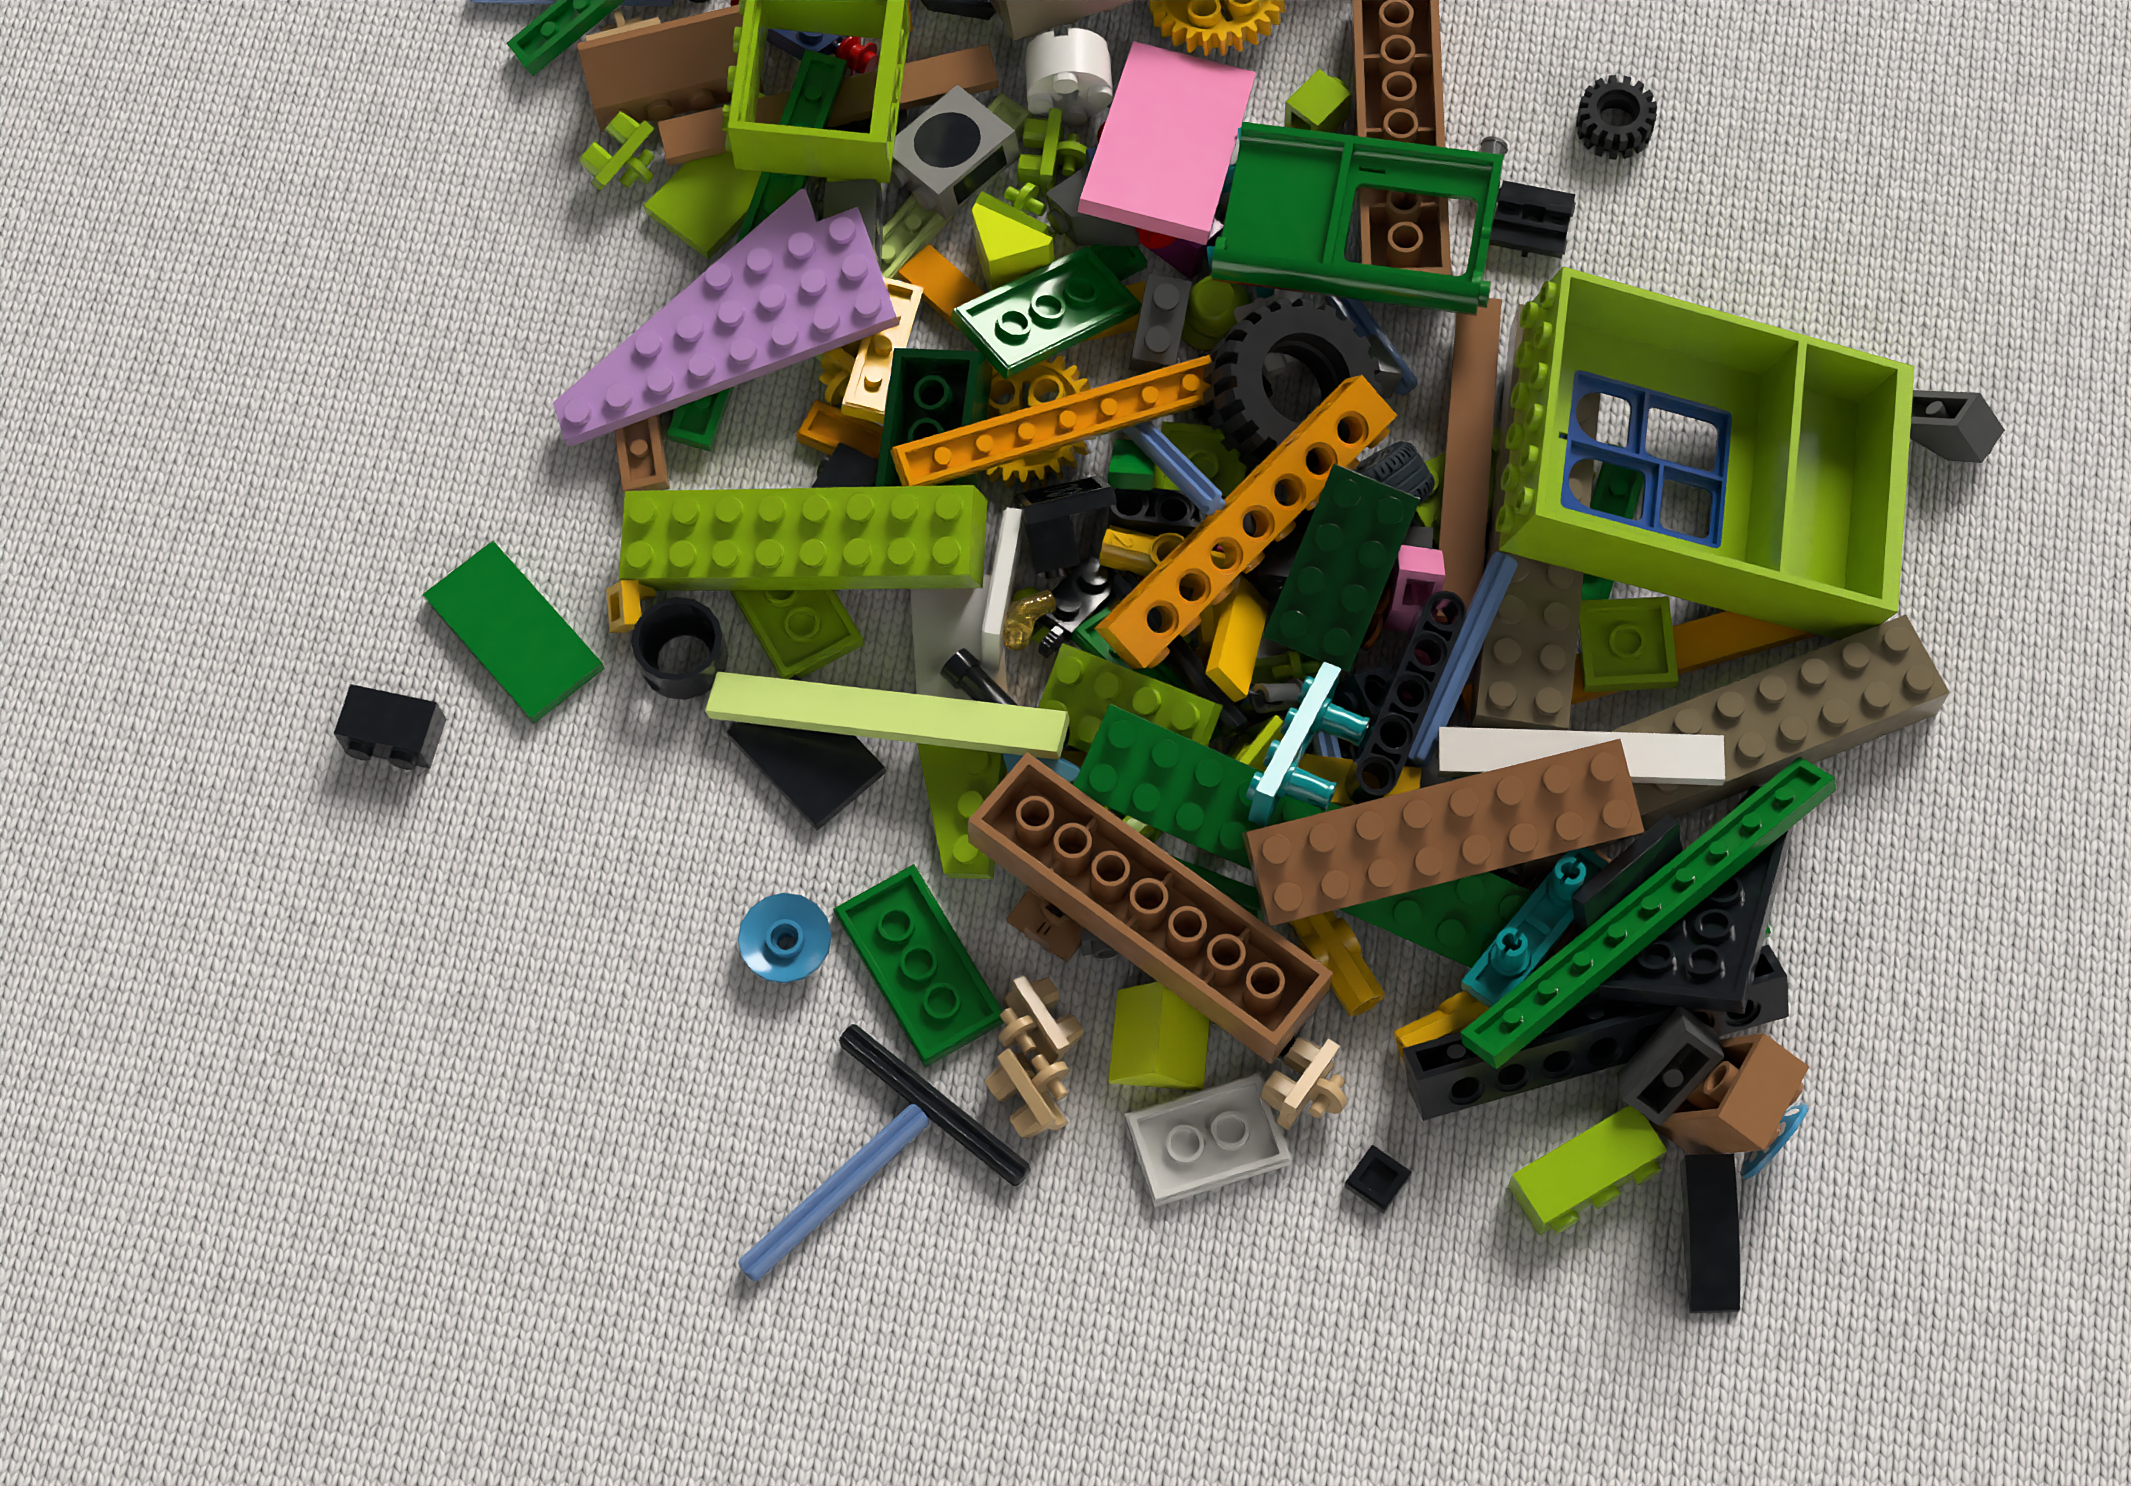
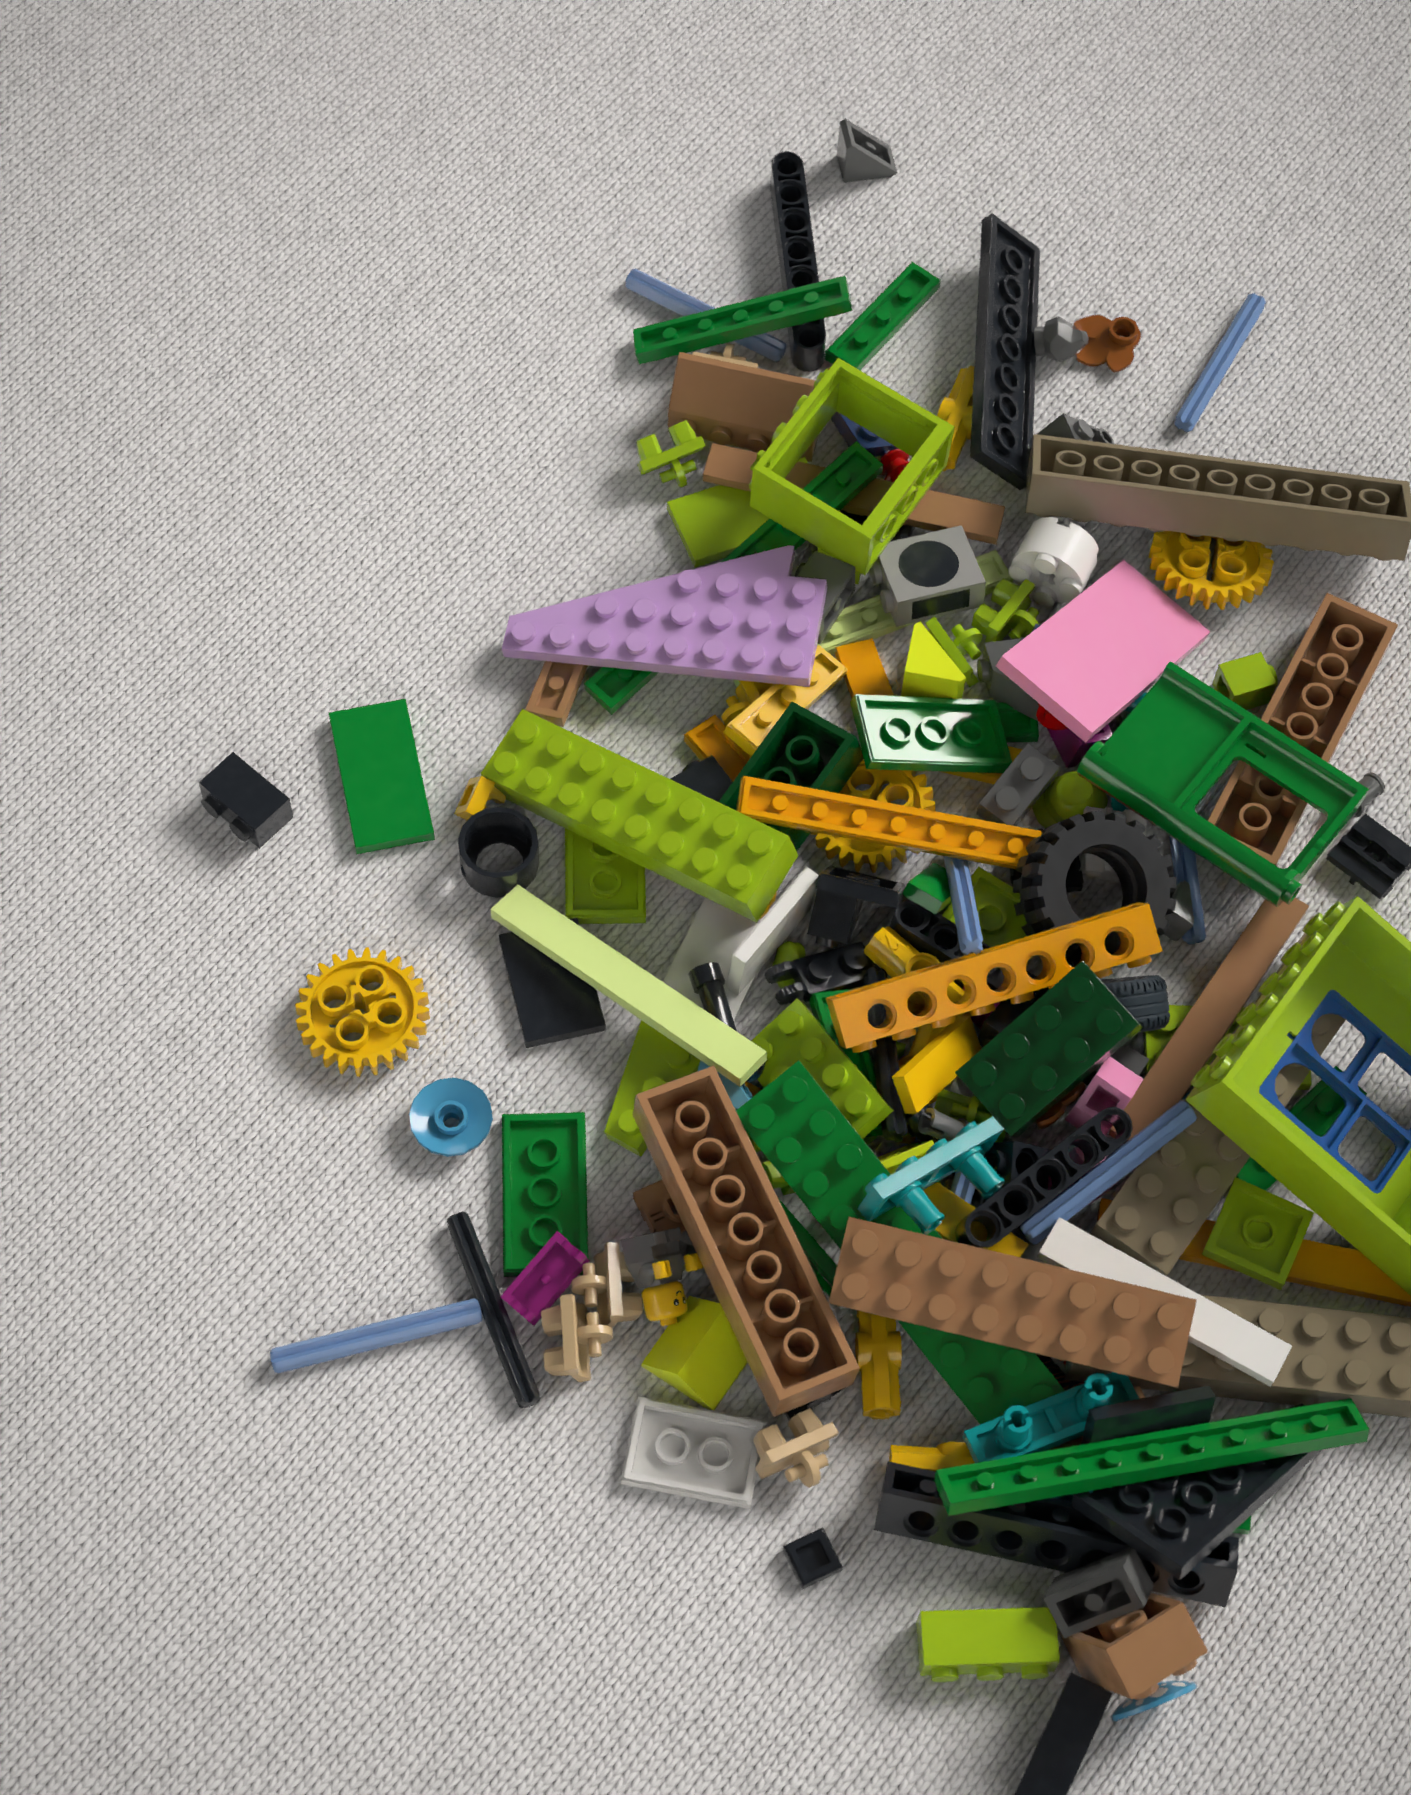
camera: 20 degrees right, 5 degrees down
(669, 898) = (346, 983): none -> yellow gear
(970, 1047) = (545, 1278): none -> magenta hinge
(1022, 617) = (774, 961): clear yellow arm -> none
(1075, 981) = (657, 1266): none -> piece

